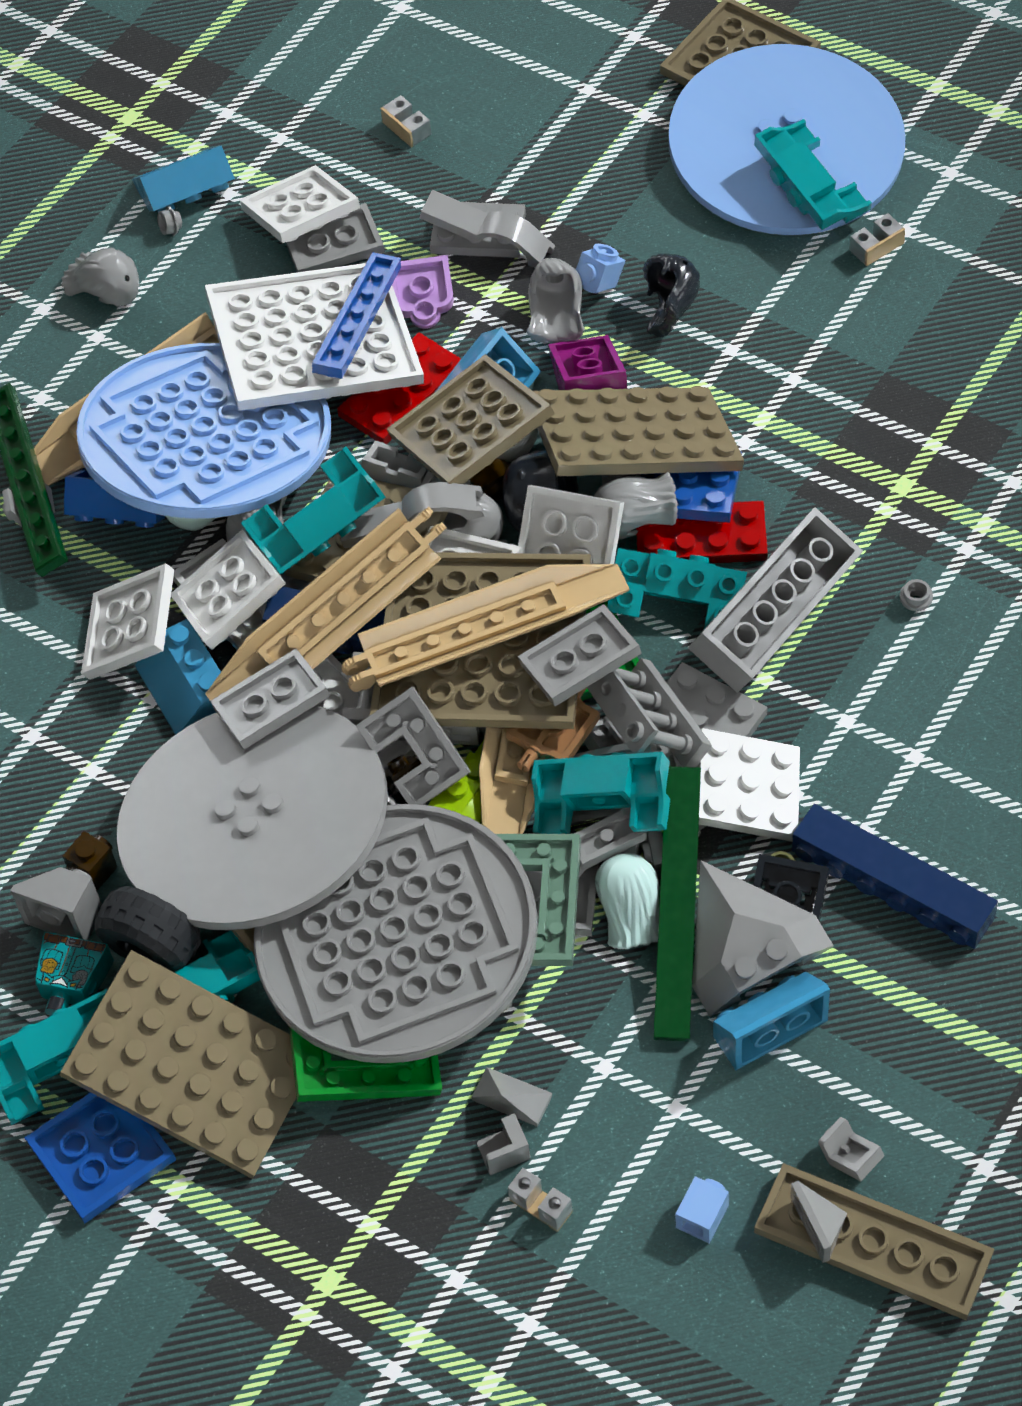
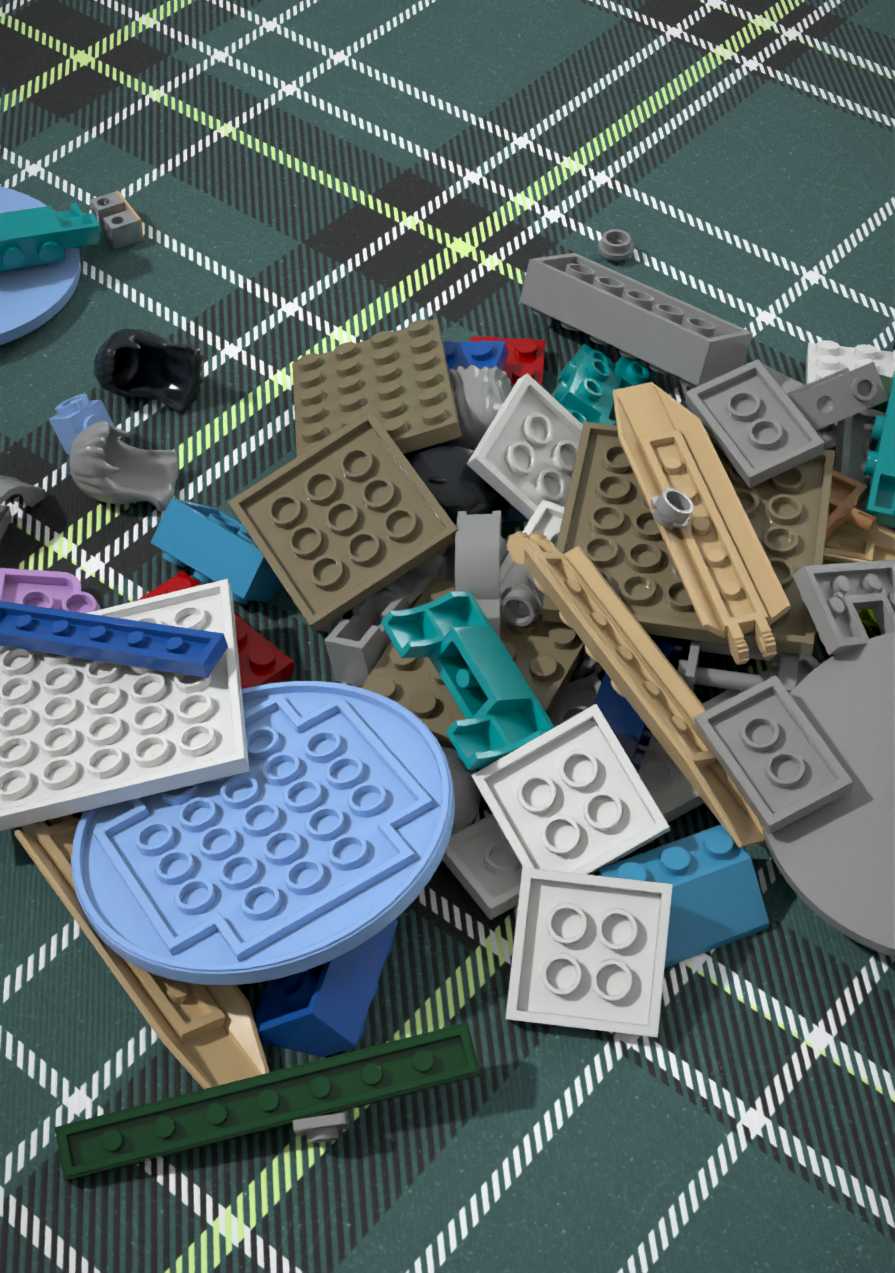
camera: 90 degrees left, 10 degrees down
(463, 592) = (672, 509): none -> light grey plate
(587, 364) = (237, 452): magenta slope -> none

